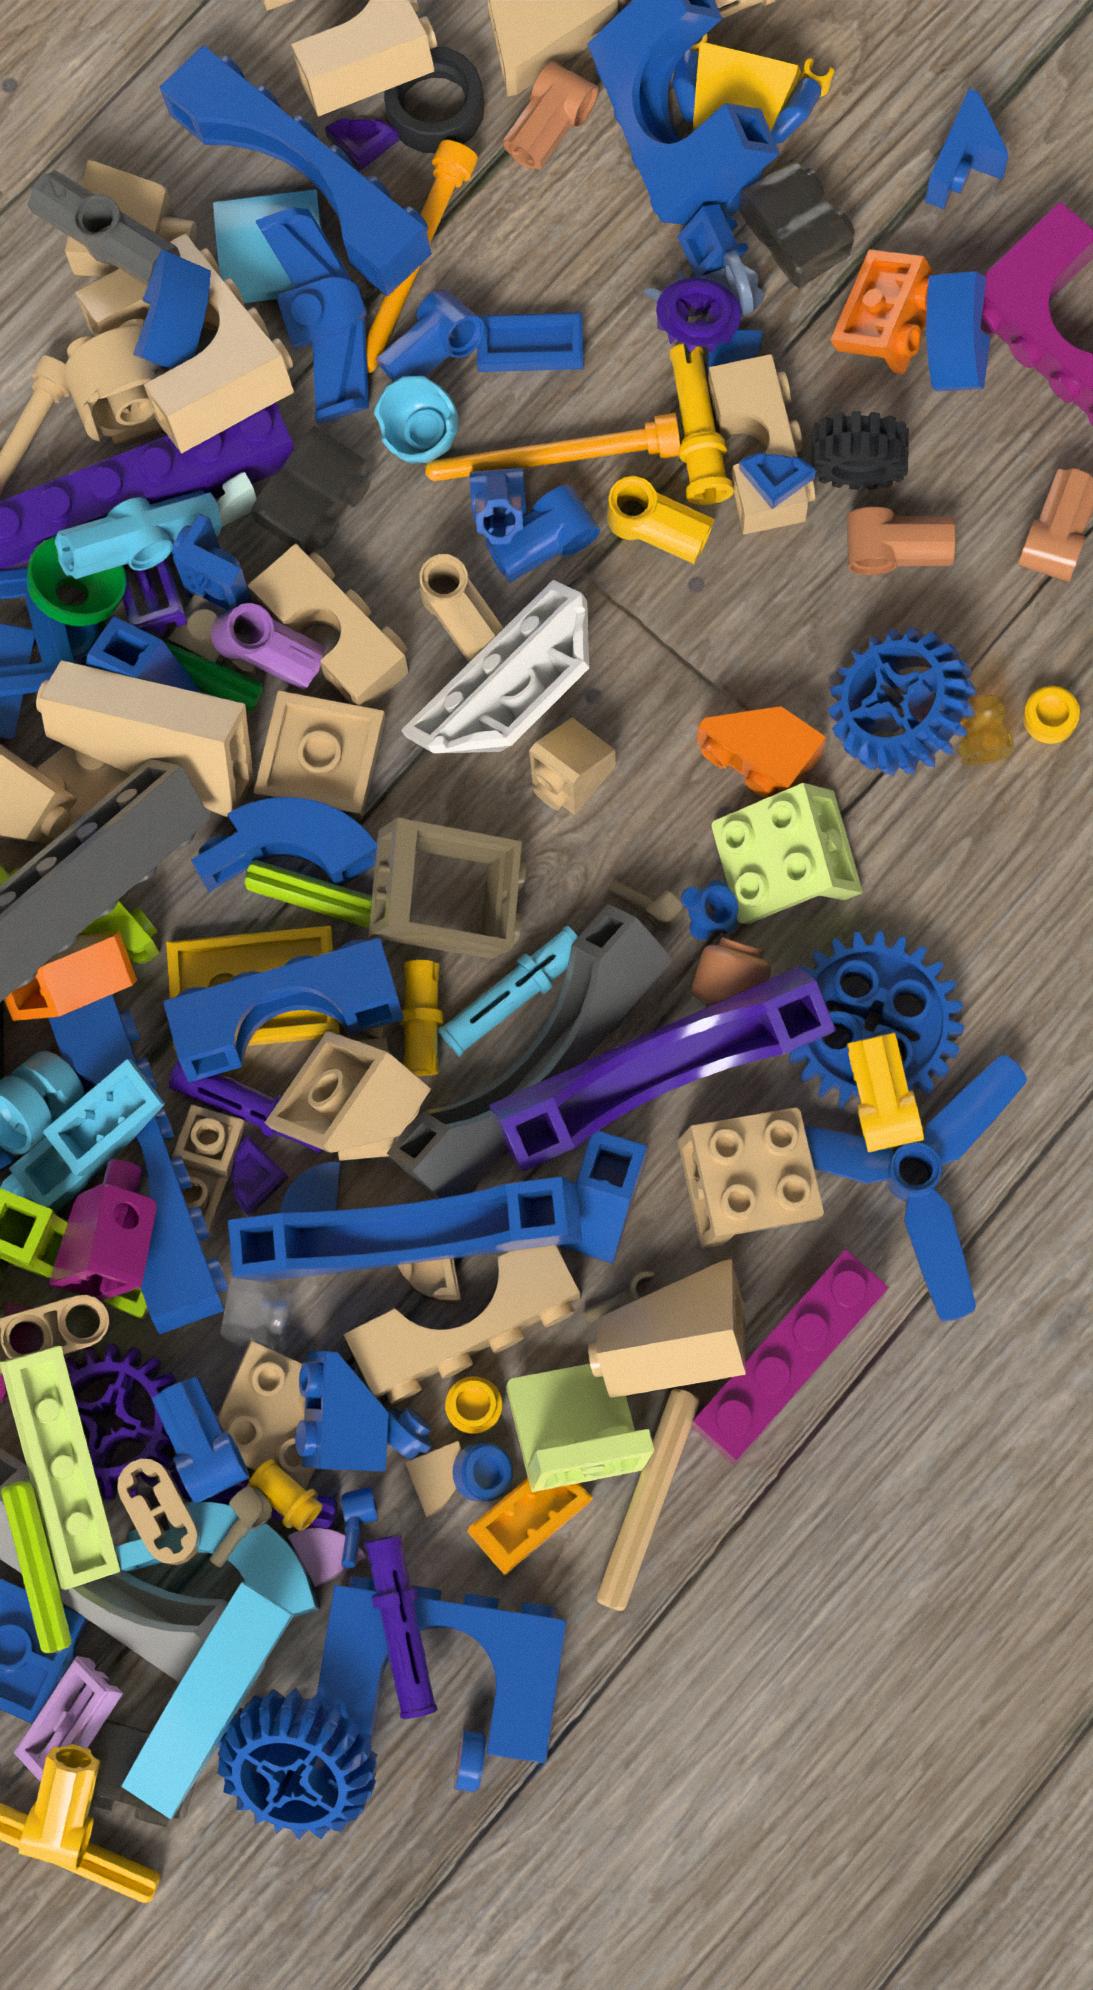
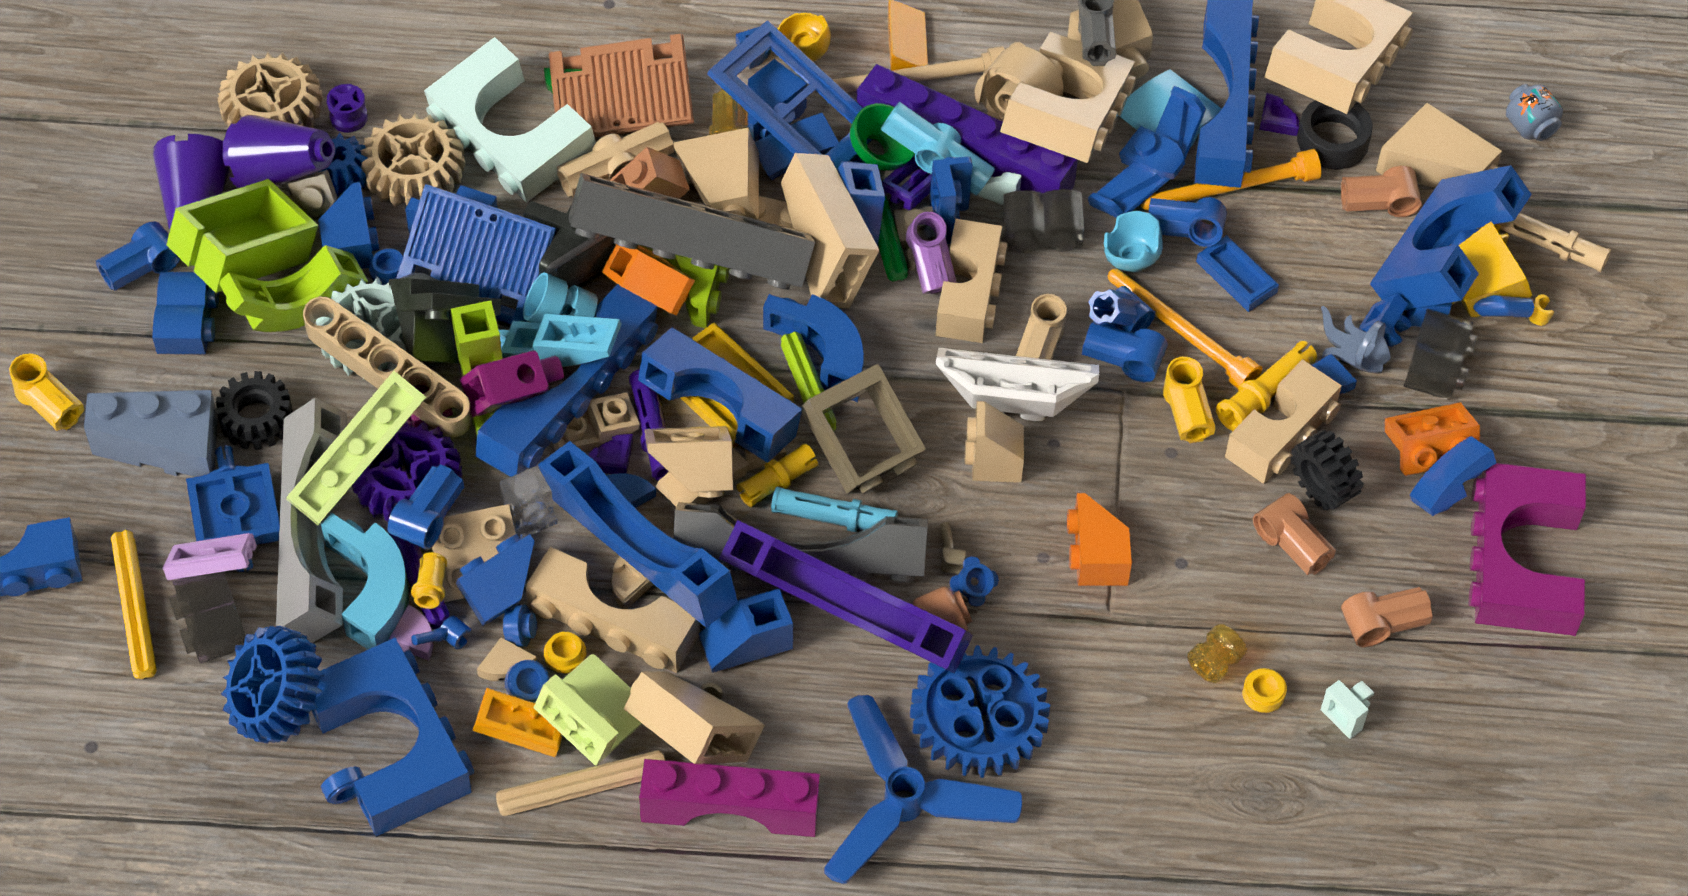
camera: 45 degrees right, 20 degrees down
(36, 1566) = (288, 475): lime axle -> none
(59, 1819) = (145, 585): yellow piece -> none
(146, 1518) = (362, 512): tan beam -> none
(176, 311) = (1077, 71): blue slope -> none
(207, 1700) = (274, 602): medium azure slope -> none
(252, 1511) = (404, 565): dark tan hand -> none
(320, 752) = (893, 324): tan plate -> none
(400, 1625) = (431, 644): dark purple pin -> none
(695, 297) = (1340, 328): dark purple gear -> none
(749, 1175) = (826, 700): tan bracket -> none
(776, 475) = (1267, 433): blue tile -> none
(786, 852) = (1052, 597): yellowish green bracket -> none
(885, 1106) = (928, 741): yellow piece -> none
(931, 707) = (1191, 591): blue gear -> none
(970, 144) = (1570, 407): blue slope -> none

